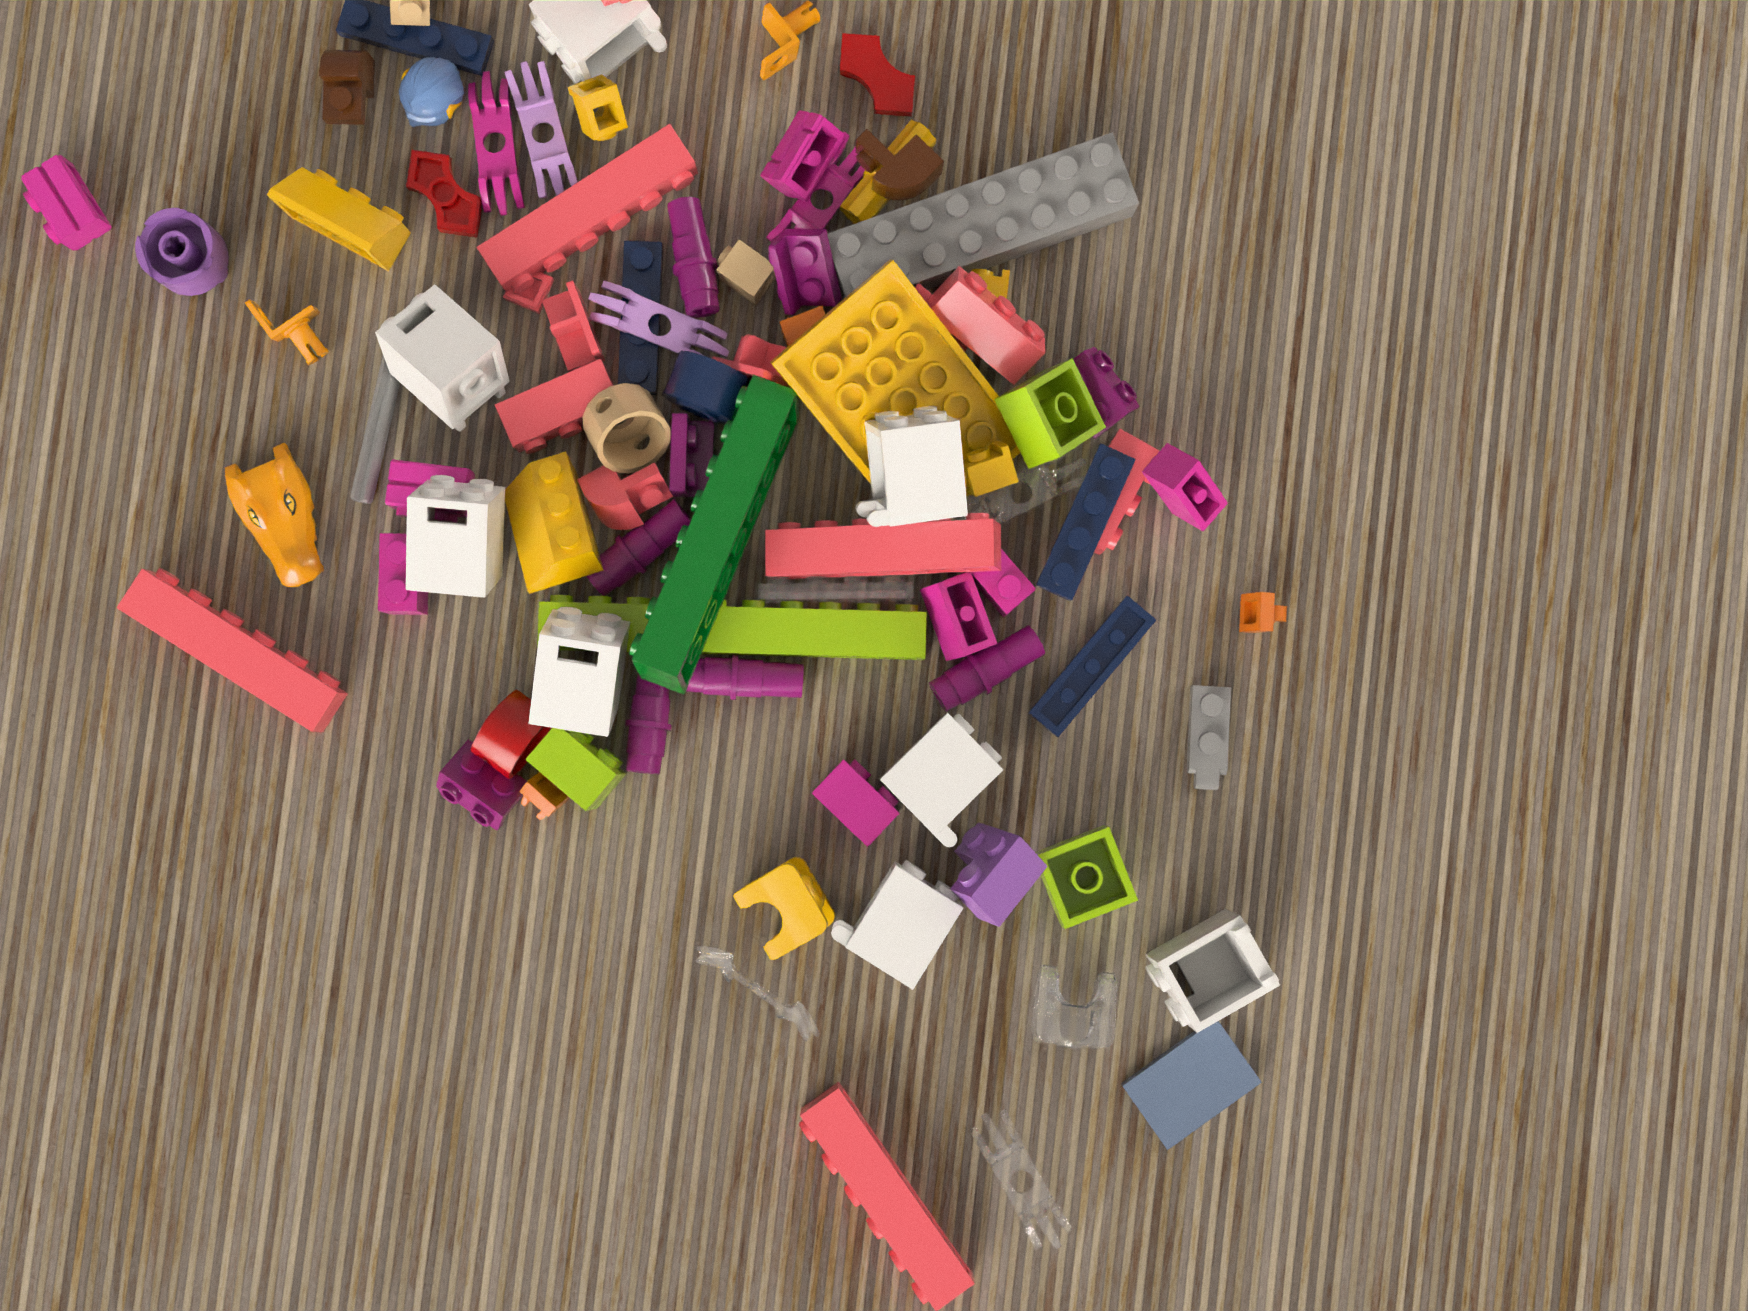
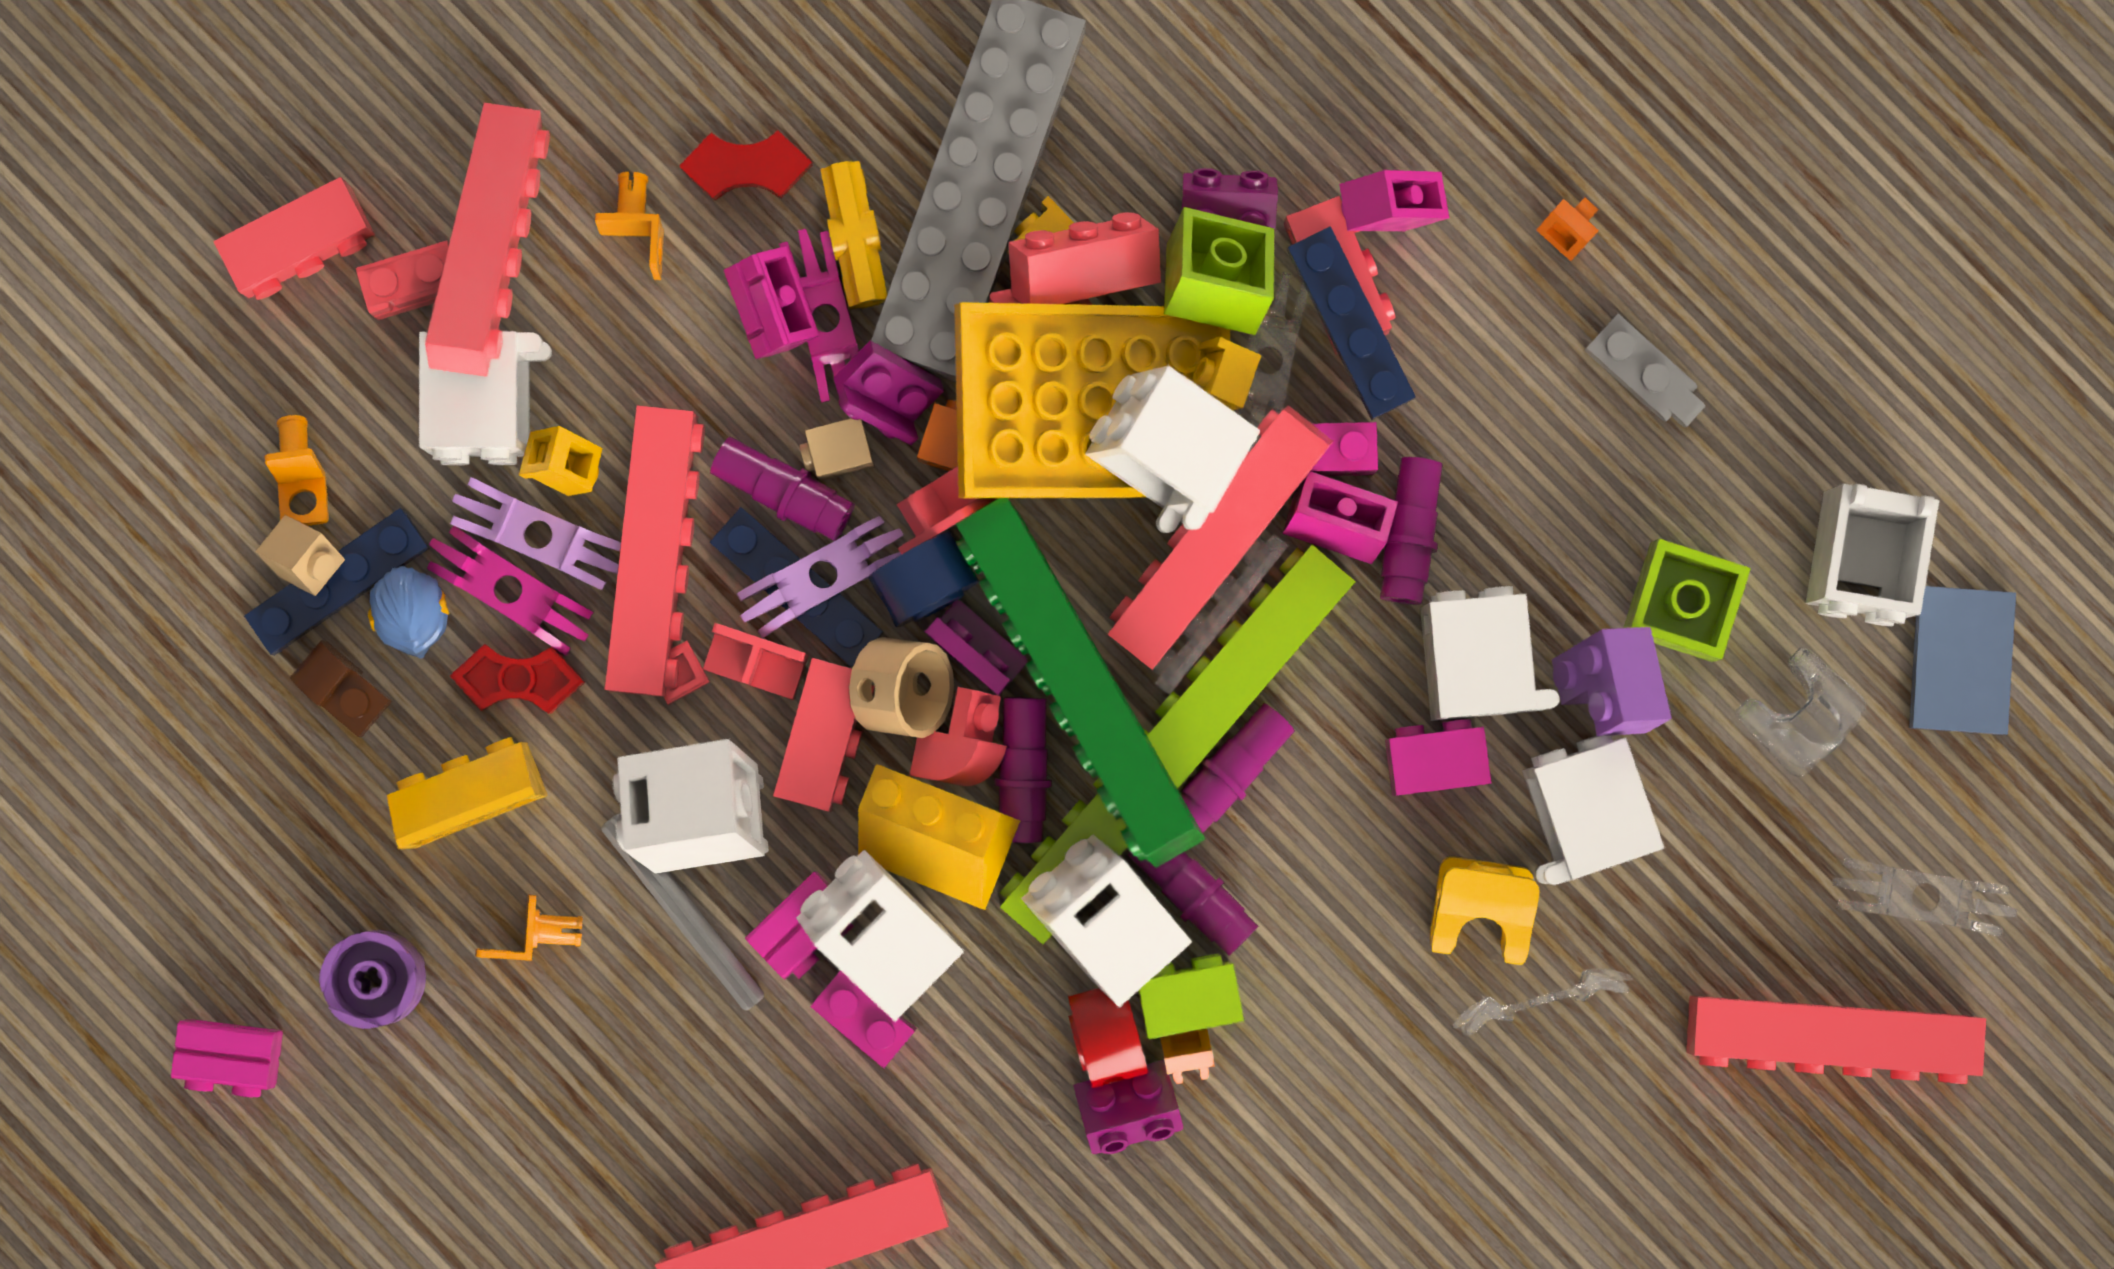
camera: 45 degrees left, 0 degrees up
(278, 512) = (699, 1092): light orange animal -> none
(899, 175) = (874, 224): reddish brown brick -> none
(1092, 666) = (1490, 429): dark blue plate -> none

